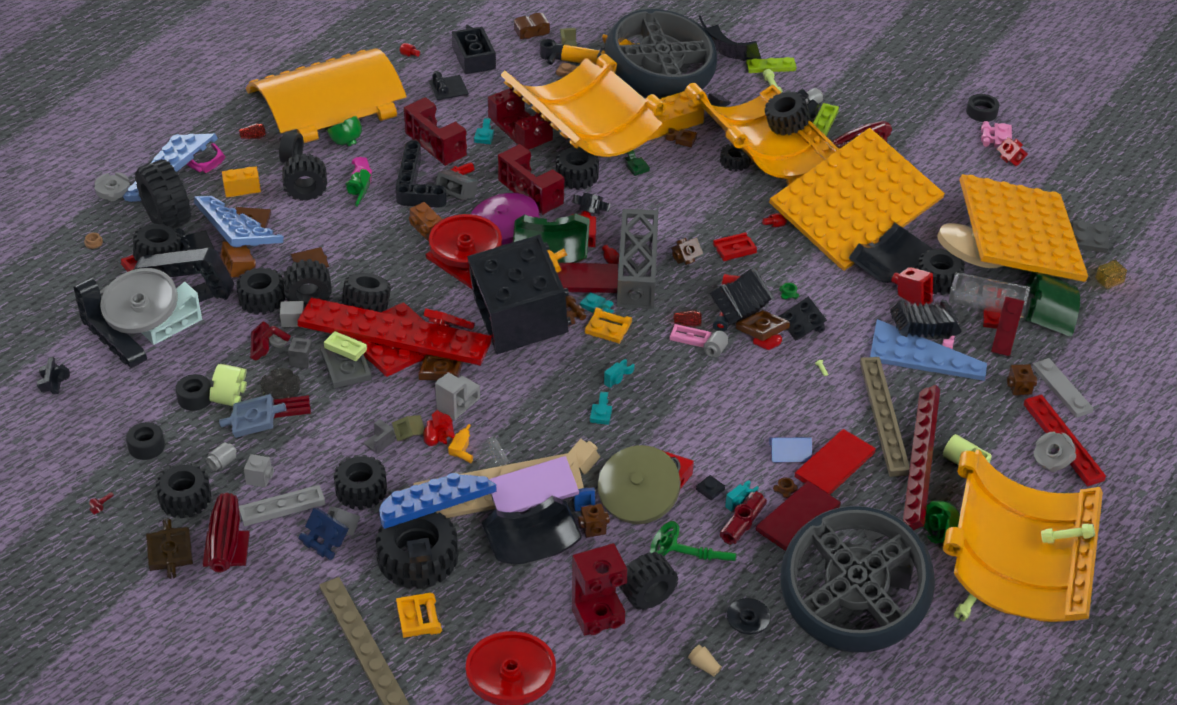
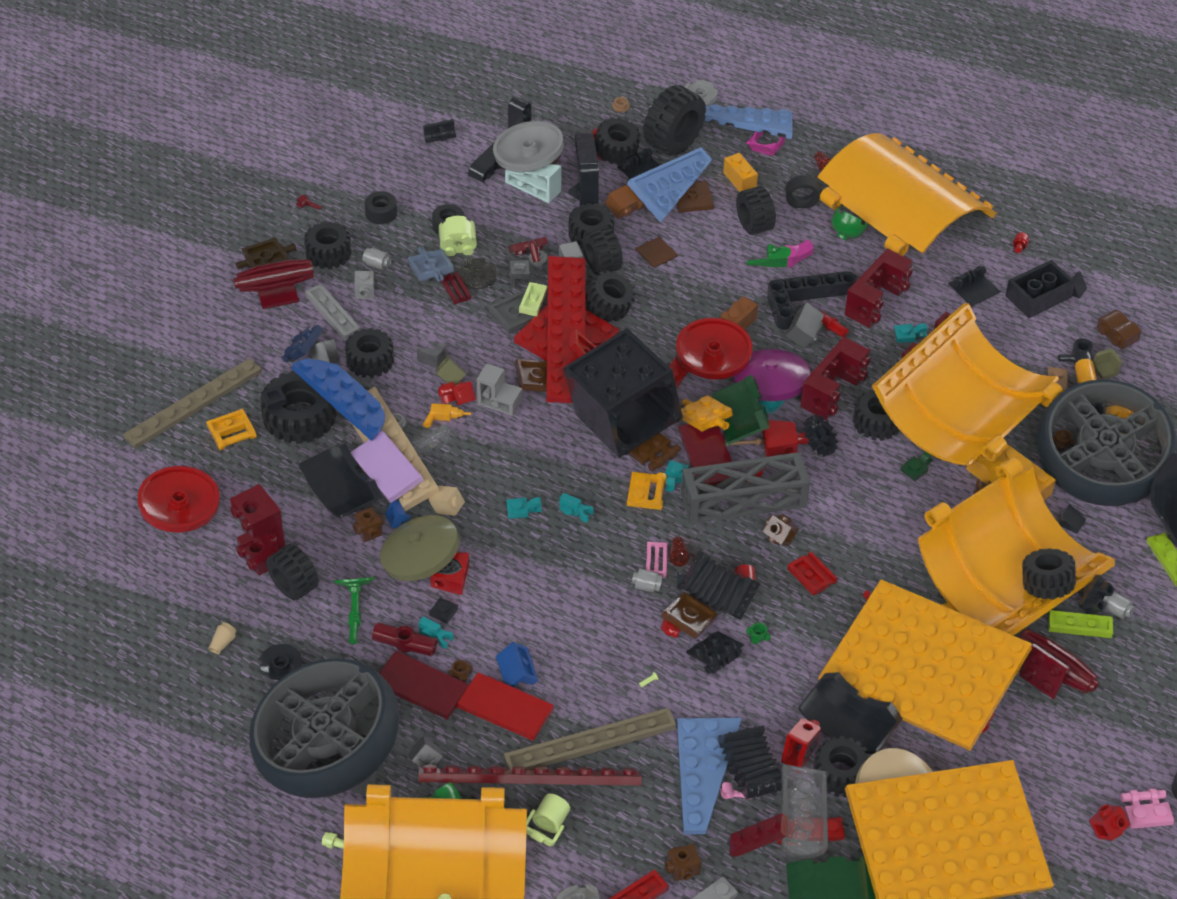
camera: 75 degrees right, 5 degrees up
(769, 76) = (1145, 559): yellowish green bar -> none

